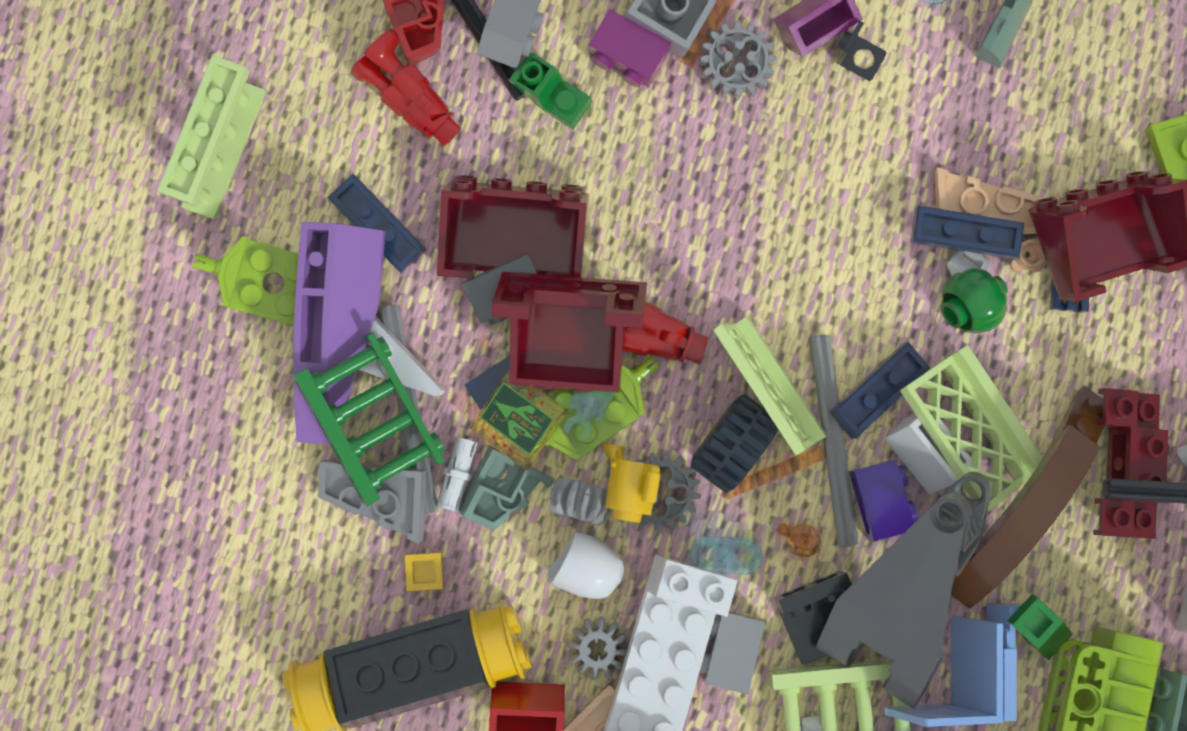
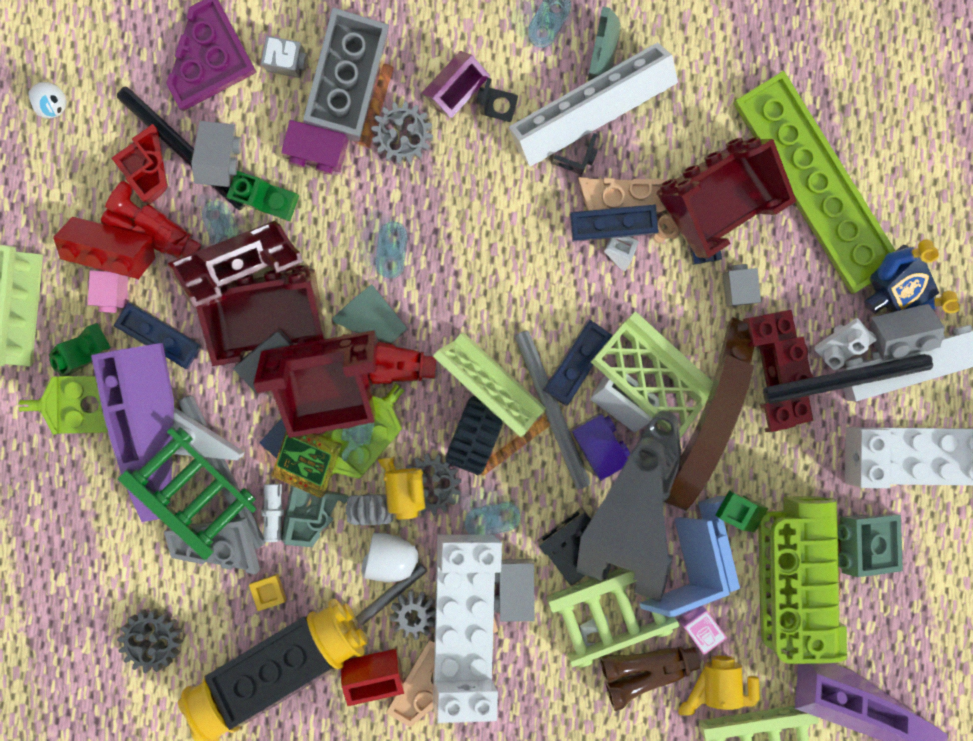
camera: 20 degrees left, 5 degrees up
(256, 574) = (160, 652): none -> dark grey gear
(278, 218) = (77, 352): none -> green slope
(333, 153) = (107, 291): none -> bright pink brick
(347, 101) = (104, 247): none -> red brick
(476, 157) = (244, 254): none -> dark red bracket
(489, 115) = (220, 227): none -> clear light blue plate
(574, 616) = (390, 595): none -> flat silver bar
(643, 261) = (369, 313): none -> sand green slope
(687, 196) = (391, 250): none -> clear light blue plate
(802, 539) = (547, 491): clear orange piece -> none
(938, 155) = (574, 166): none -> black bracket
(974, 301) = (633, 274): green plant -> none
(978, 85) = (594, 104): none -> white brick
(1105, 350) = (741, 286): none -> light grey brick

